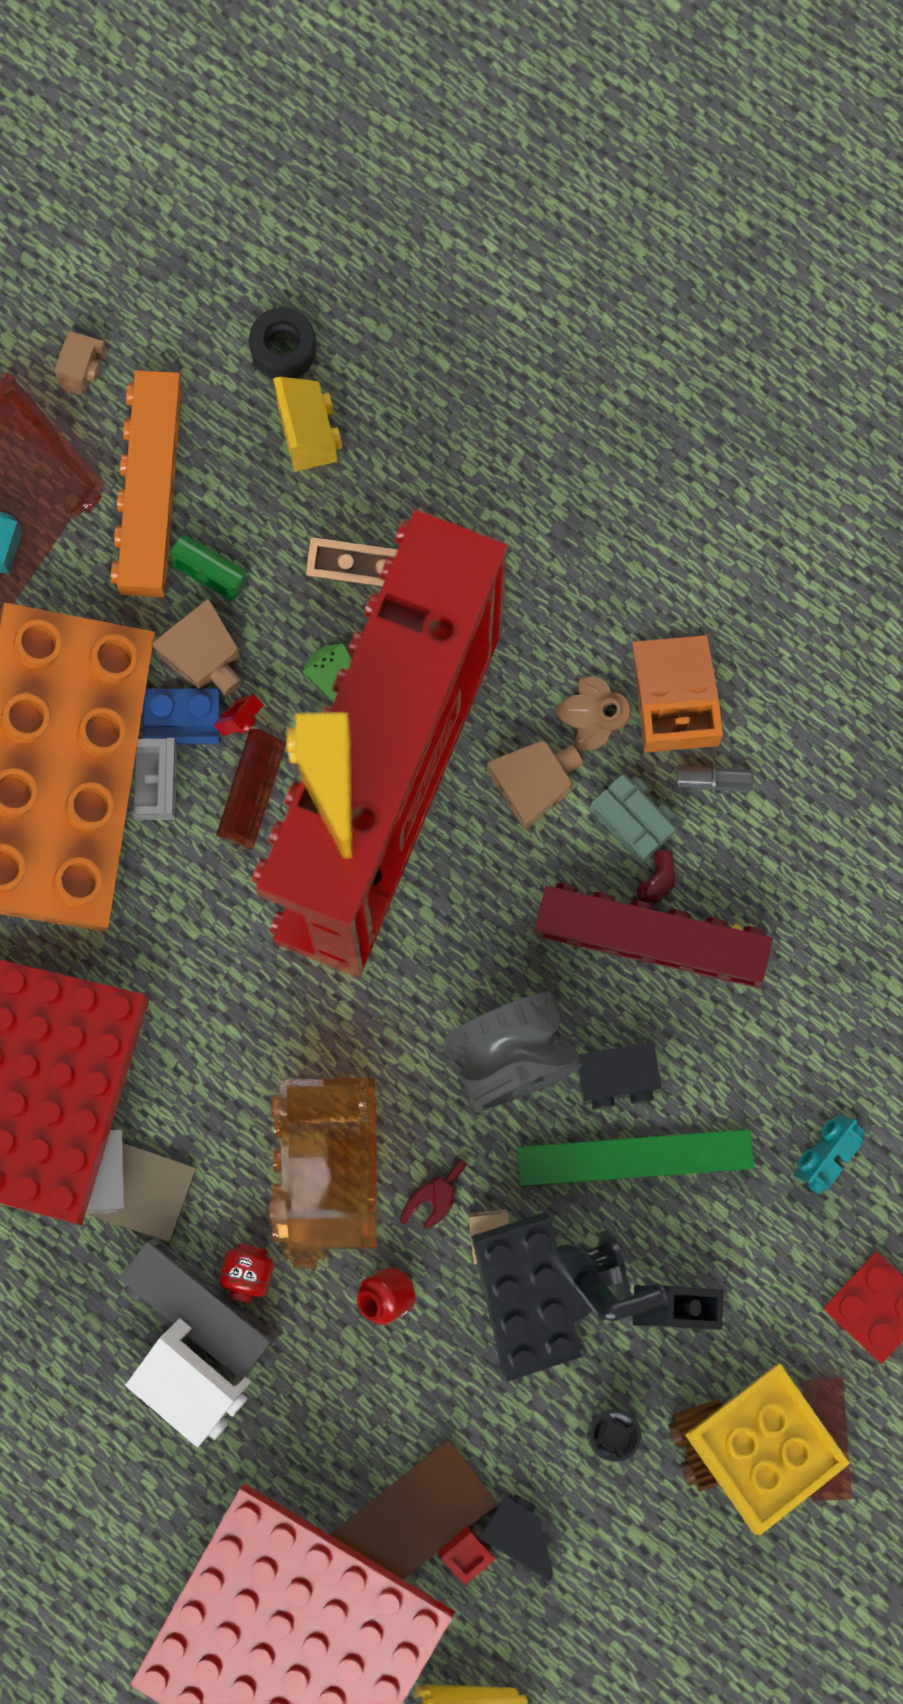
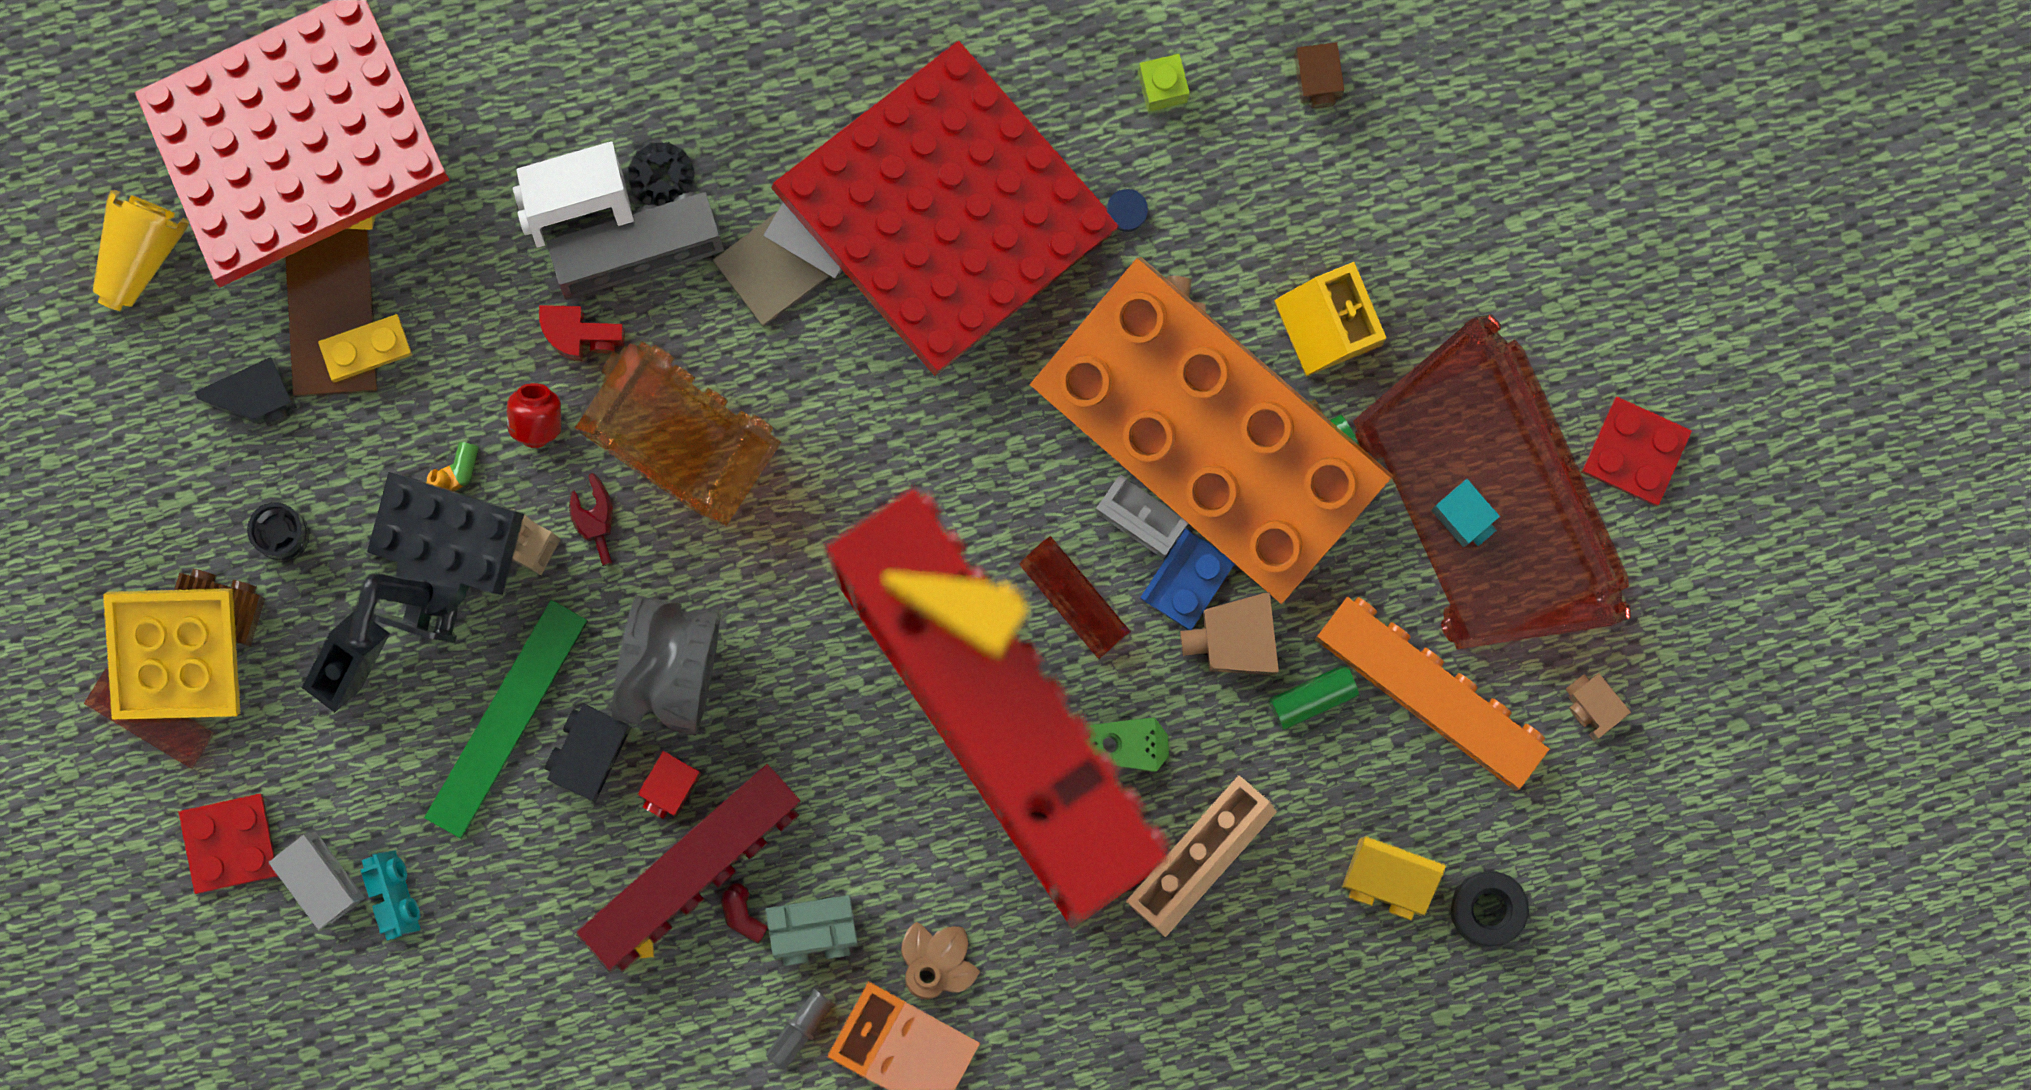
camera: 120 degrees right, 5 degrees up
(137, 1347) = (641, 174): none -> black gear
(239, 715) = (1150, 630): red plate -> none
(246, 1273) = (637, 307): red head -> none
(304, 1316) = (568, 333): none -> red brick
(422, 1469) = (365, 348): none -> yellow plate
(466, 1555) = (268, 338): red plate -> none
(472, 1328) = (460, 472): none -> bright green arm
(534, 779) = (909, 861): medium nougat torso -> none
(601, 996) = (668, 786): none -> red brick
(858, 1217) = (316, 880): none -> light grey hinge

